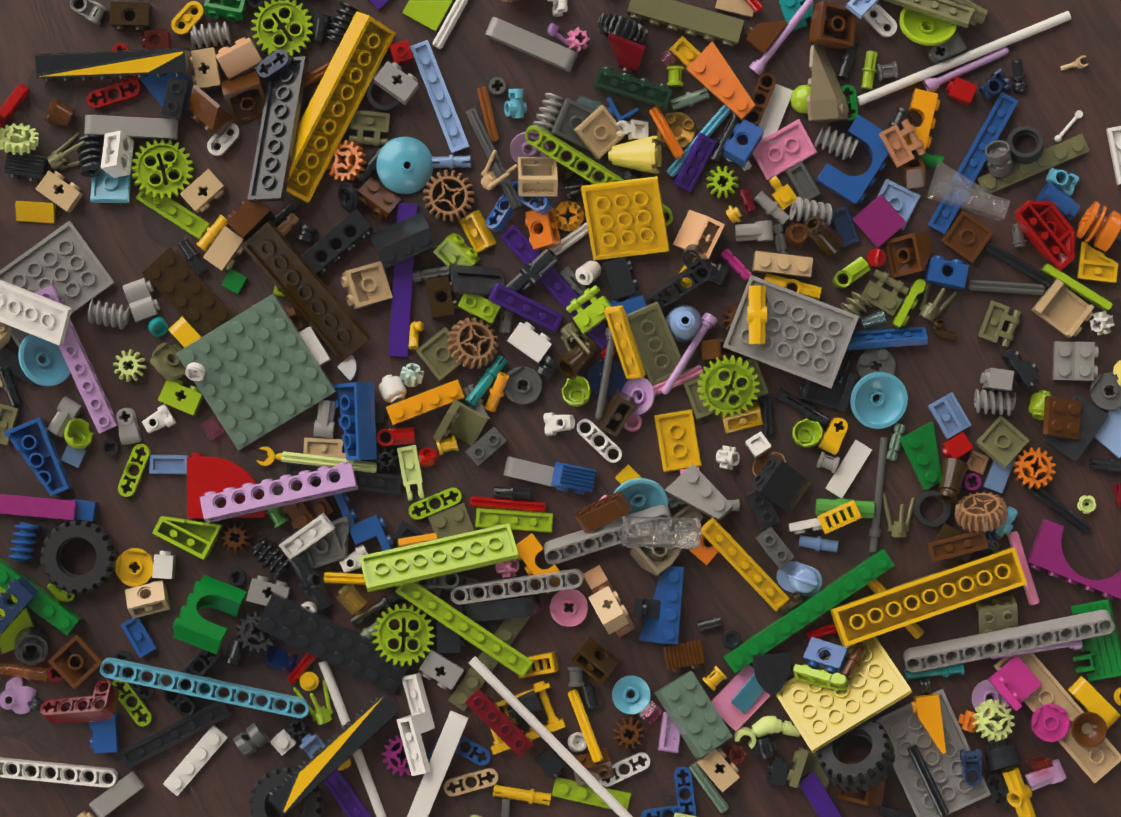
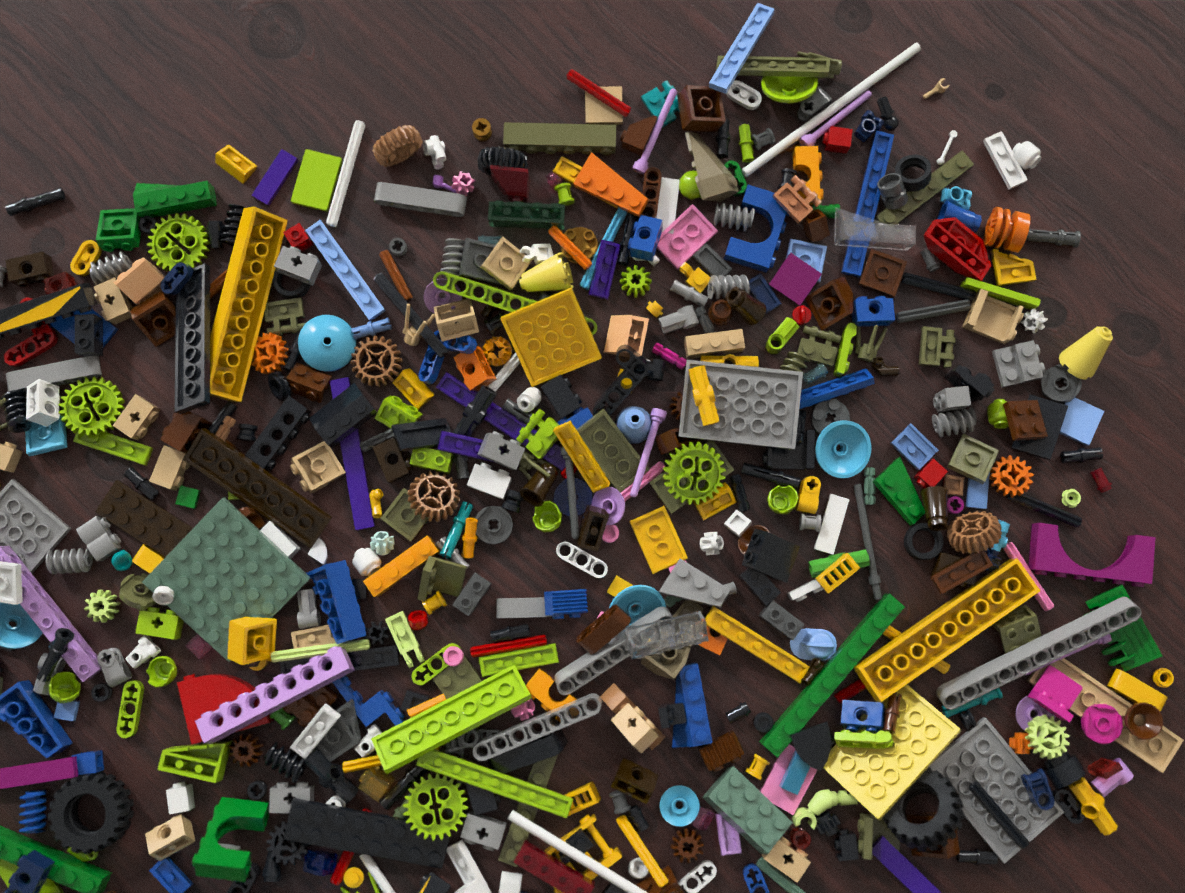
camera: 15 degrees left, 5 degrees down
(86, 396) = (57, 648): none -> black pin
(128, 558) = (144, 815): yellow plate -> none
(168, 464) = (161, 695): medium blue tile -> none
(173, 442) = (161, 671): none -> lime hair
(208, 112) = (123, 340): reddish brown slope -> none
(212, 233) = (154, 455): yellow pin -> none
(225, 141) = (144, 362): white plate -> none
(267, 434) = (251, 639): none -> yellow slope
(399, 436) = (383, 607): red piece -> none
(453, 500) = (453, 656): none -> bright pink tile
(516, 106) = (419, 261): medium azure plate -> none
(538, 313) = (490, 450): none -> light grey brick
(557, 423) = (537, 553): white plate -> none
(568, 618) = (600, 743): bright pink plate -> none
(613, 111) = (516, 242): blue bracket -> none
(689, 99) = (584, 212): sand green pin -> none
(747, 199) = (663, 291): dark red pin -> none
(818, 543) = (822, 604): medium blue pin -> none
(899, 528) = (897, 568): olive plant -> none
(929, 715) = (981, 747): light orange slope -> none

